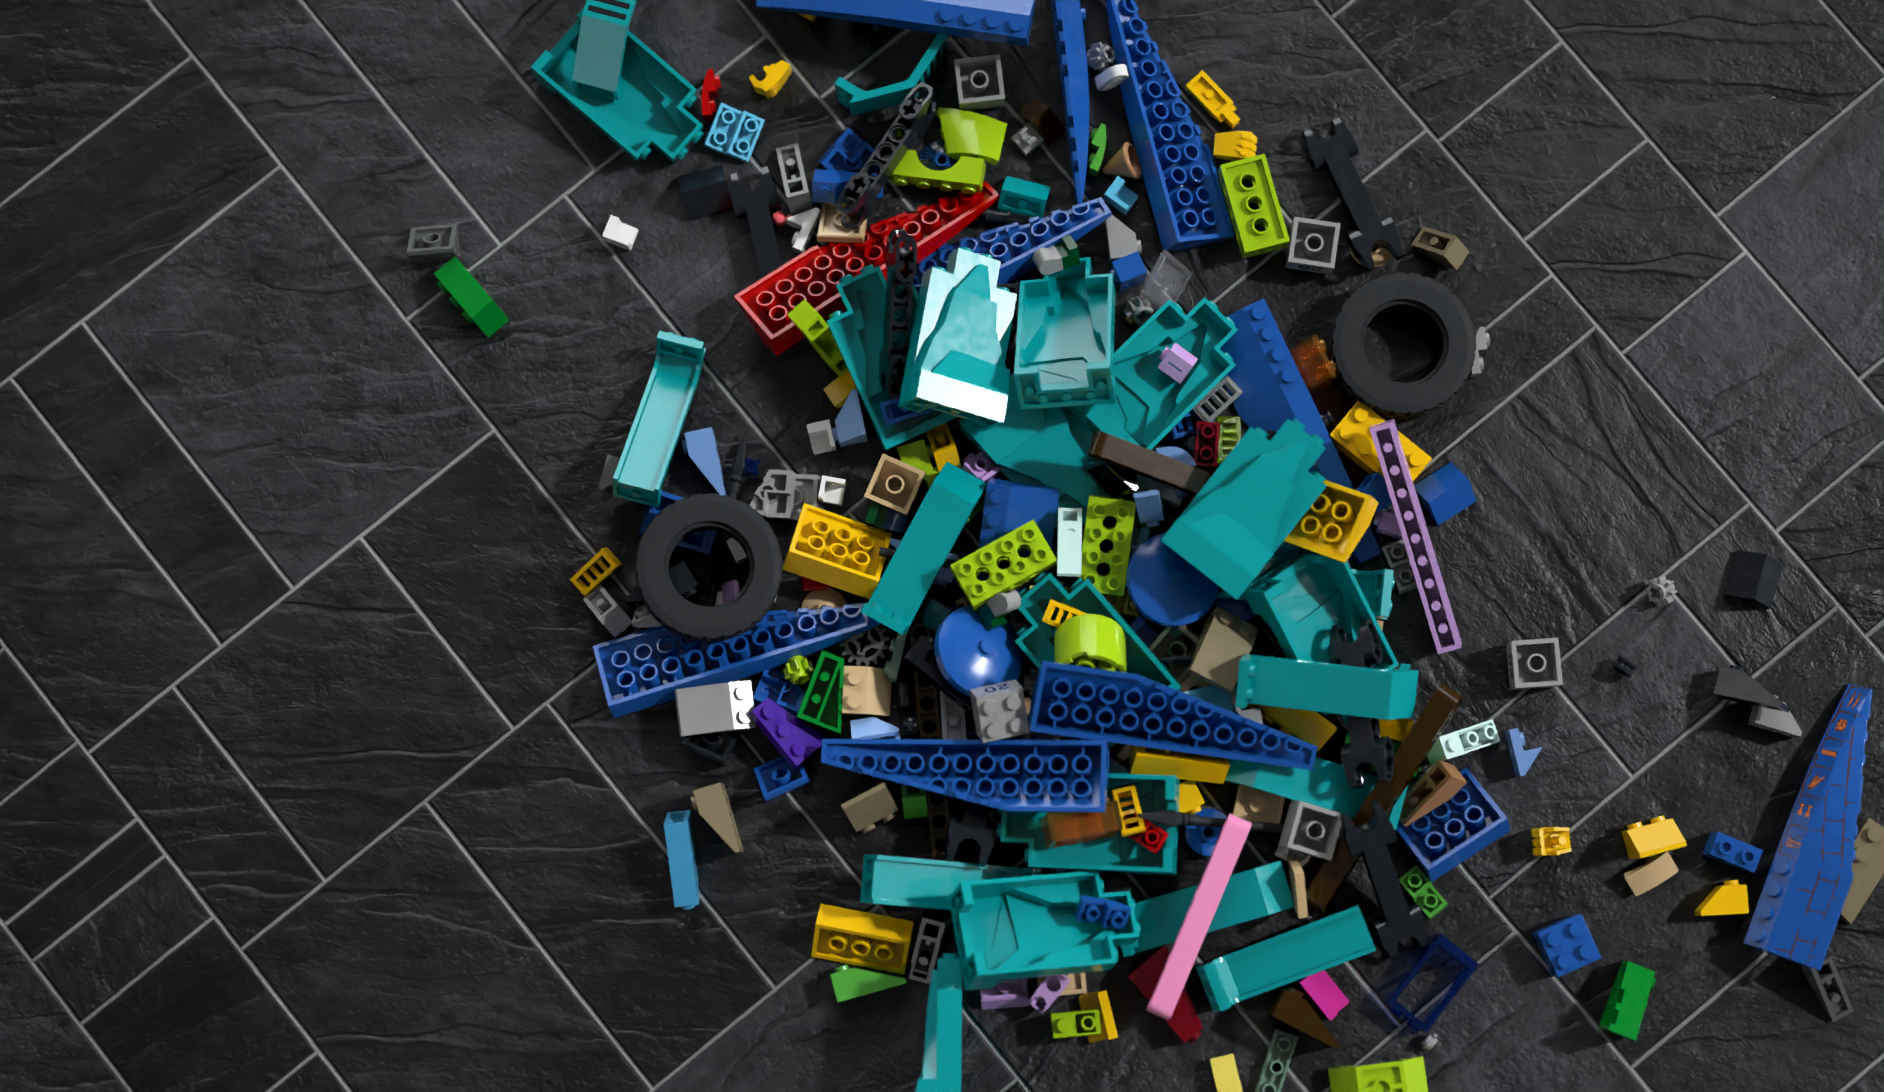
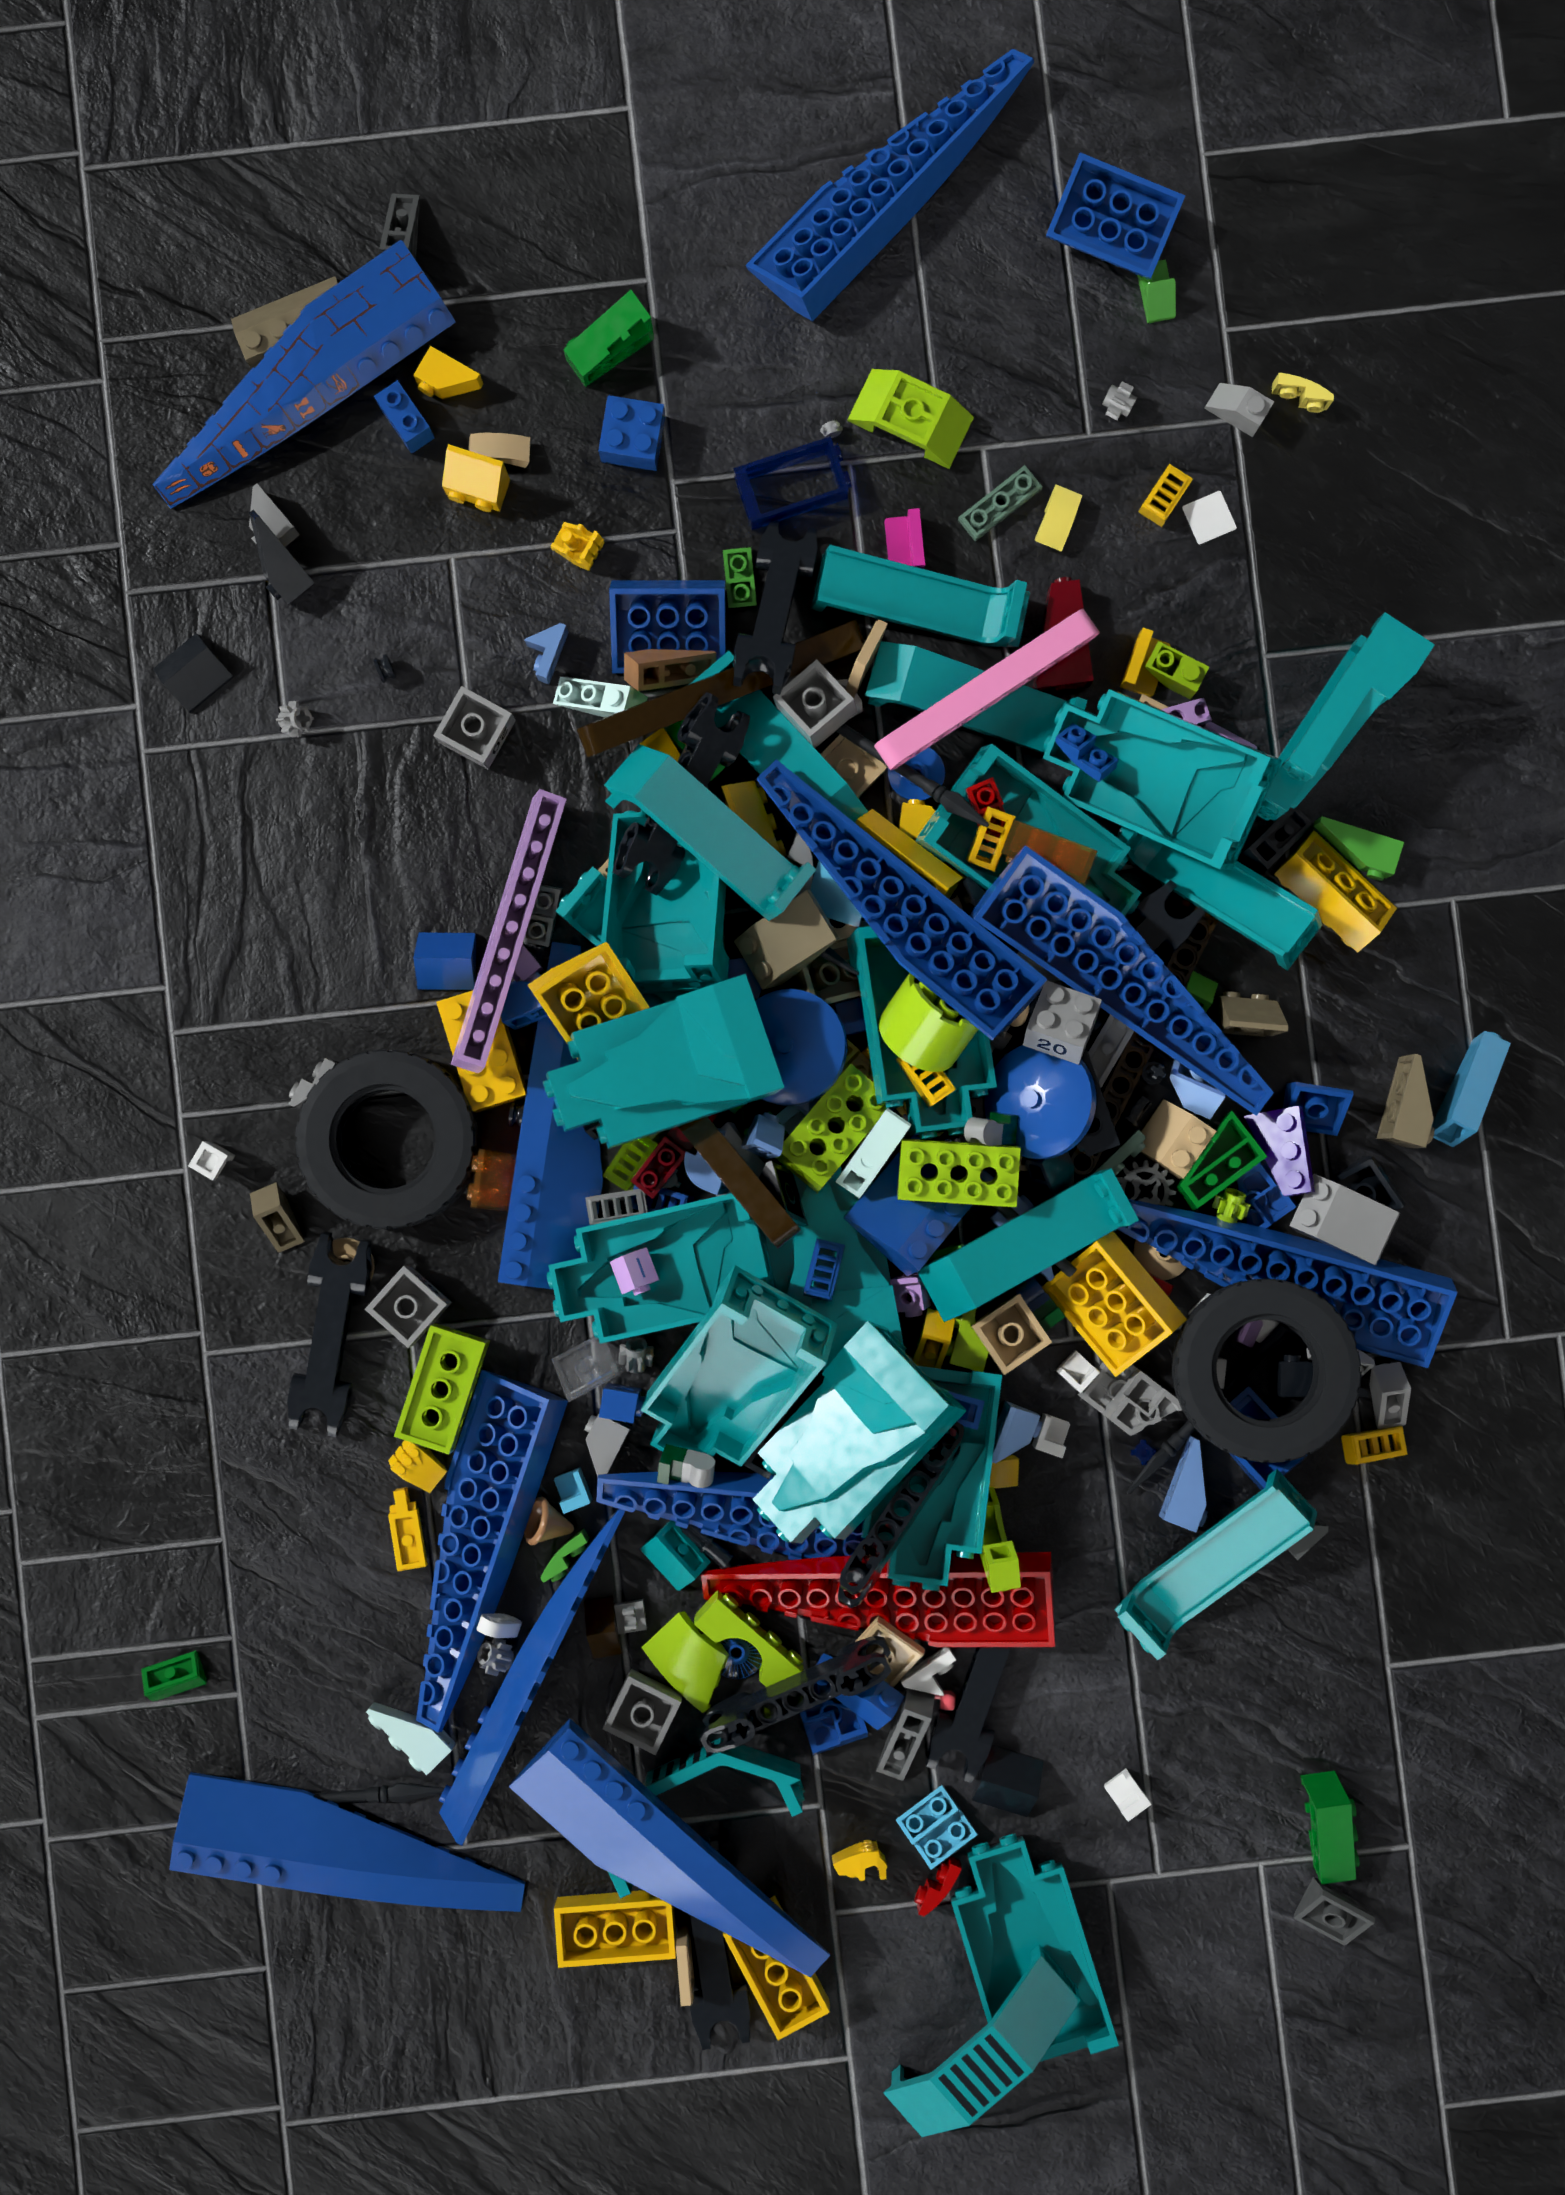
camera: 155 degrees left, 5 degrees up
(1042, 447) = (822, 1294): none -> blue slope
(1298, 1013) = (949, 535): dark brown slope -> none
(1510, 257) = (210, 1159): none -> white panel

